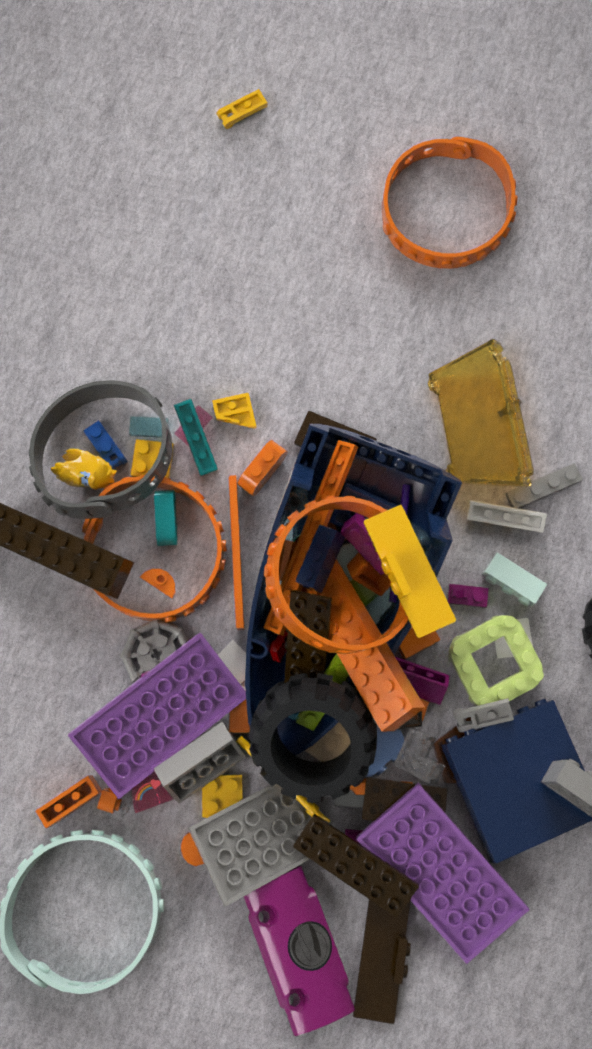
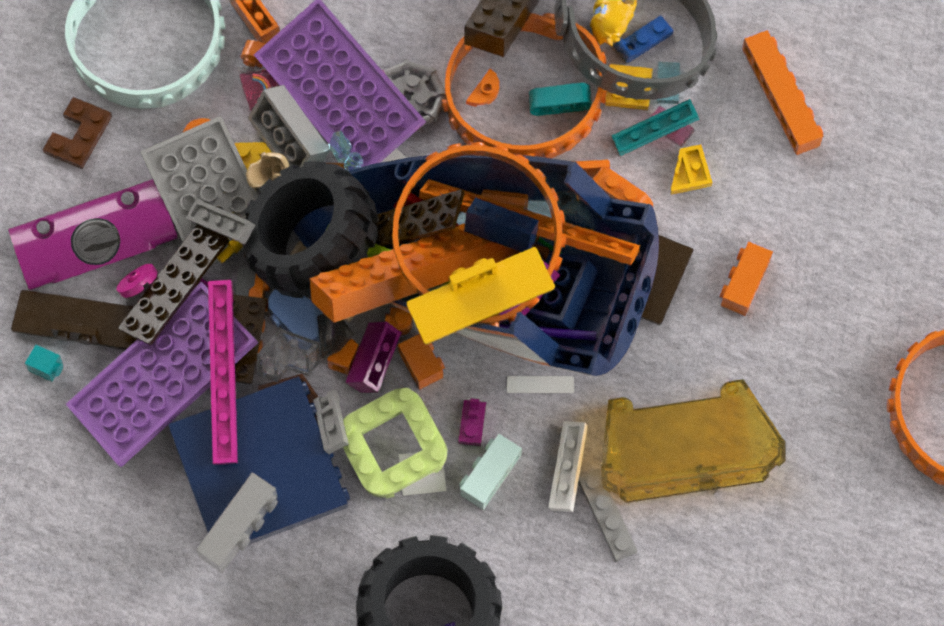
camera: 90 degrees right, 10 degrees down
(162, 333) = (782, 92): none -> orange brick
(202, 967) = (92, 123): none -> reddish brown plate
(225, 709) = (341, 148): none -> clear light blue plate
(245, 779) = (267, 167): none -> tan hair
(302, 822) = (220, 221): none -> light grey plate
(336, 369) = (745, 278): none -> orange brick
(346, 902) = (133, 282): none -> dark pink plate
(427, 987) = (44, 363): none -> teal brick
(450, 814) = (222, 372): none -> dark pink plate

